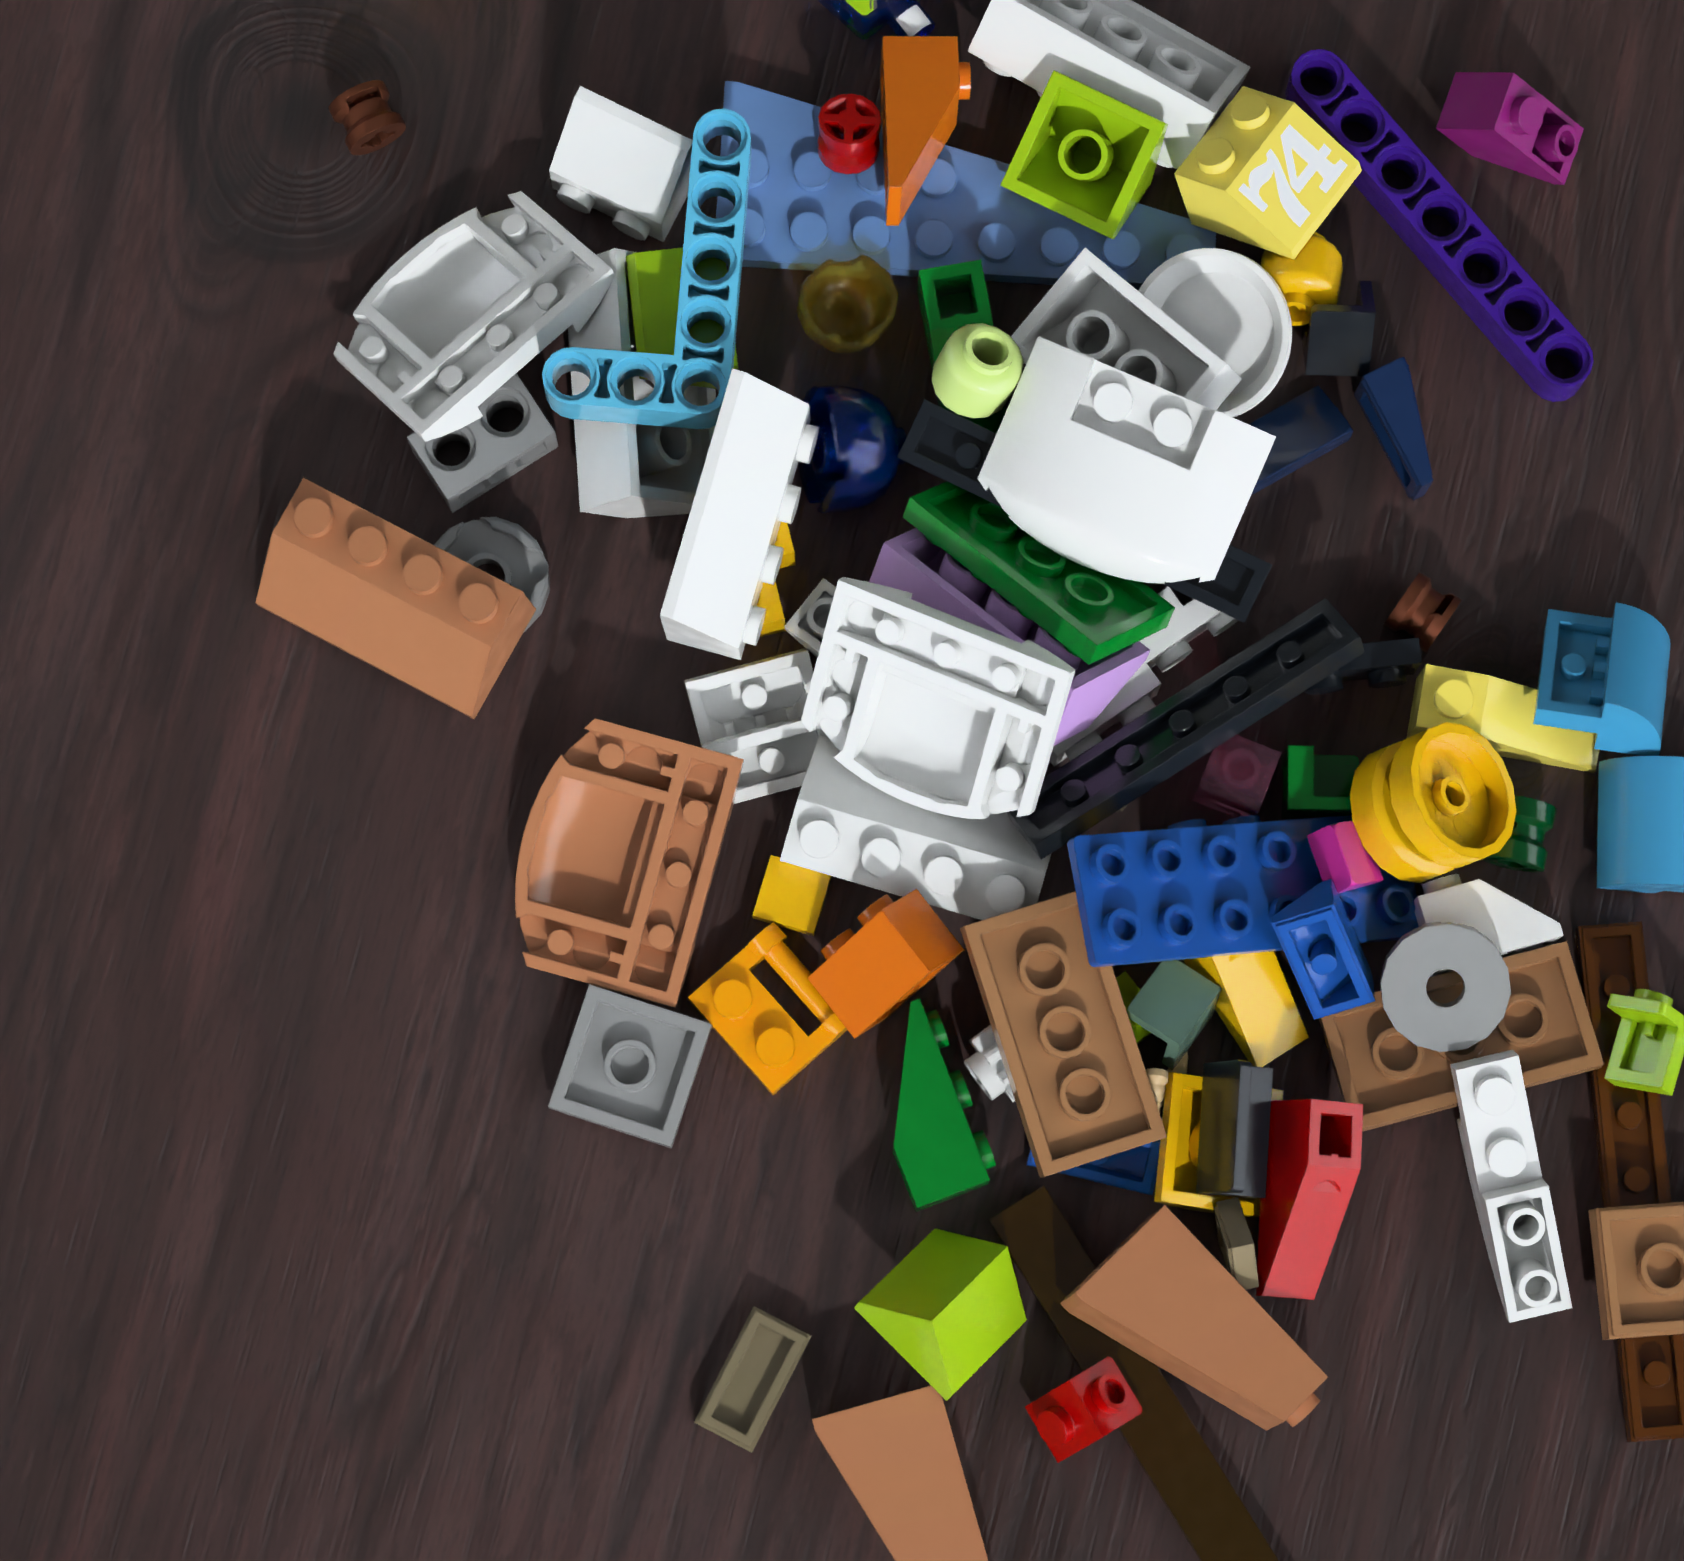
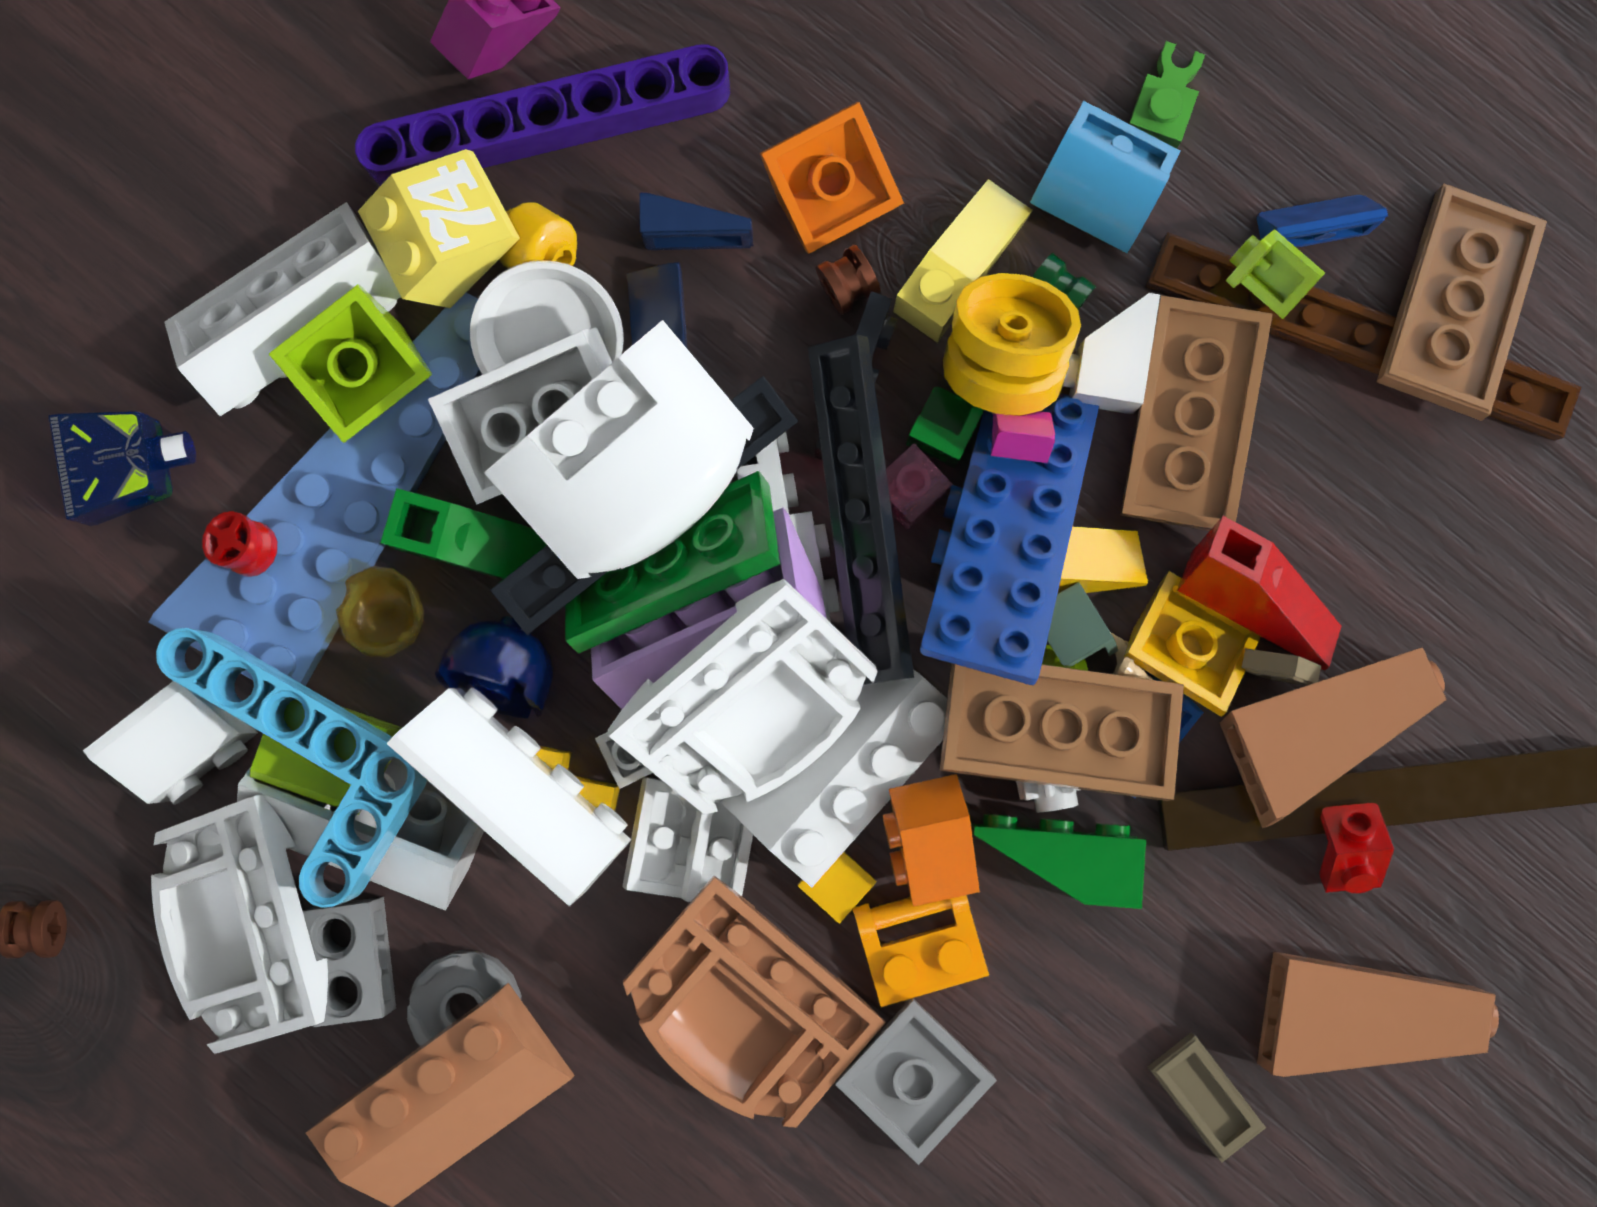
camera: 60 degrees left, 5 degrees up
(918, 111) = (251, 478): orange slope -> none
(947, 1307) = (1227, 922): lime slope -> none
(977, 370) = (487, 535): yellowish green head -> none
(1234, 1129) = (1195, 627): panel -> none
(1324, 952) = (1090, 487): blue slope -> none
(1340, 336) = (599, 233): black panel -> none
(1450, 1024) = (1190, 399): light grey tile -> none
(1509, 1186) = (1330, 434): white slope -> none
(1521, 545) = (831, 178): none -> orange slope
(1605, 678) = (971, 164): dark azure brick -> none

